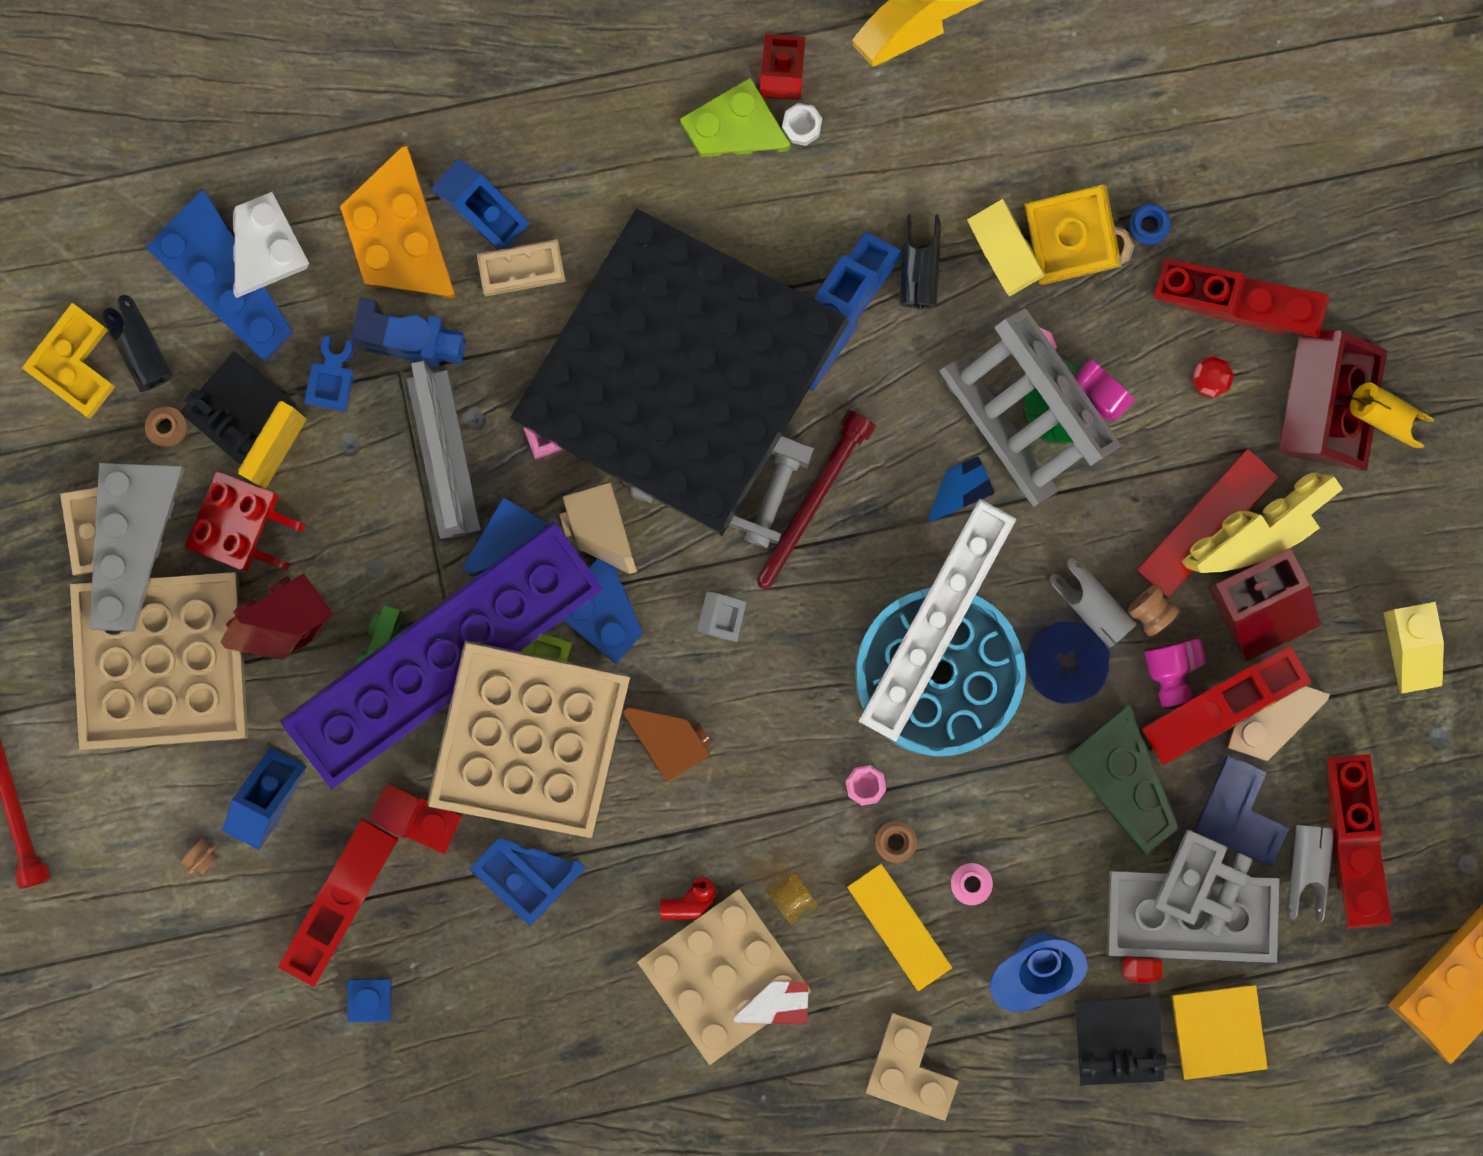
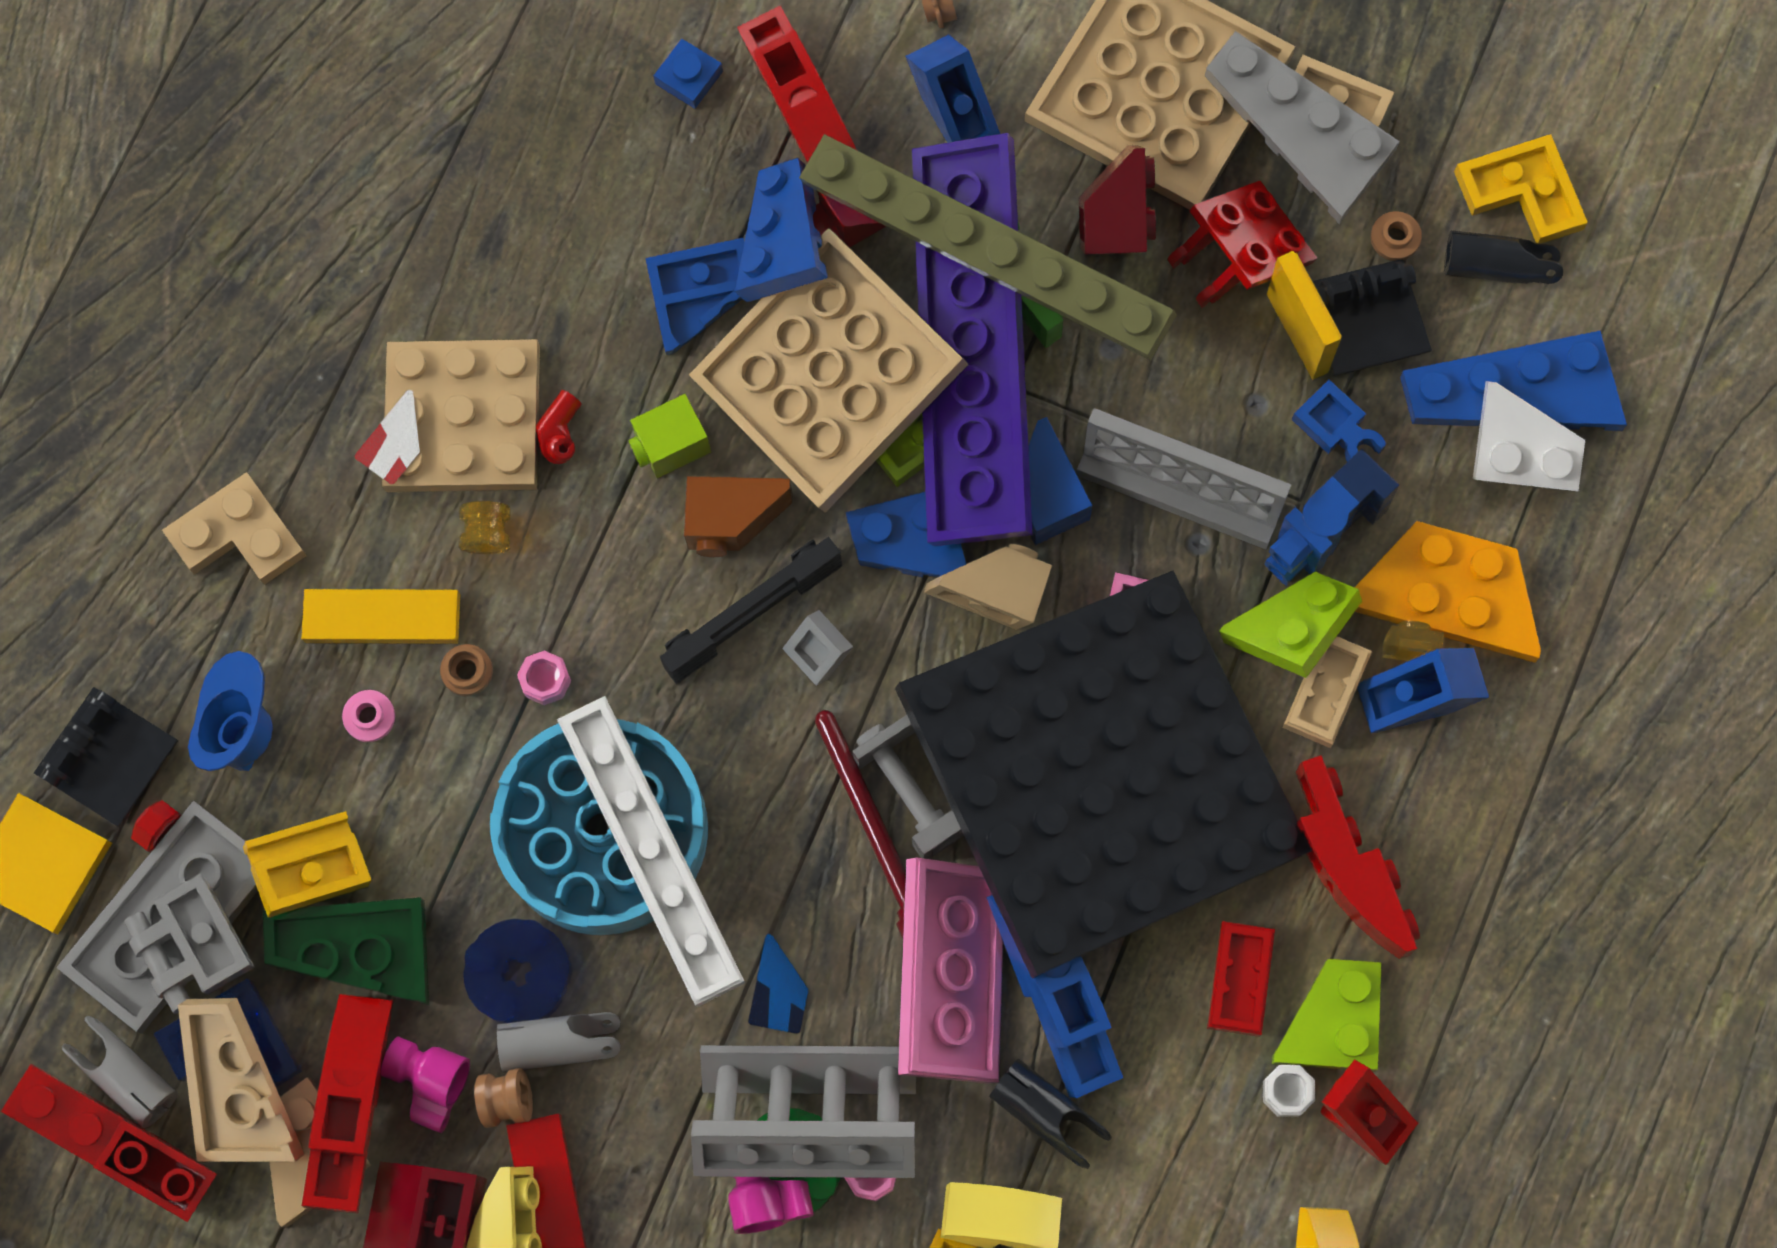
camera: 125 degrees right, 10 degrees down
(374, 683) = (989, 247): none -> olive plate
(451, 232) = (1411, 640): none -> clear yellow plate
(452, 841) = (780, 235): none -> blue wing
(491, 315) = (1295, 624): none -> lime wing
(637, 166) = (1358, 882): none -> red slope
(645, 820) = (668, 437): none -> lime brick
(668, 660) = (808, 568): none -> black container
(751, 199) = (1241, 979): none -> red plate
(878, 381) = (950, 975): none -> bright pink tile
(1097, 847) = (306, 864): none -> yellow plate
(1272, 784) = (230, 1088): none -> tan wing

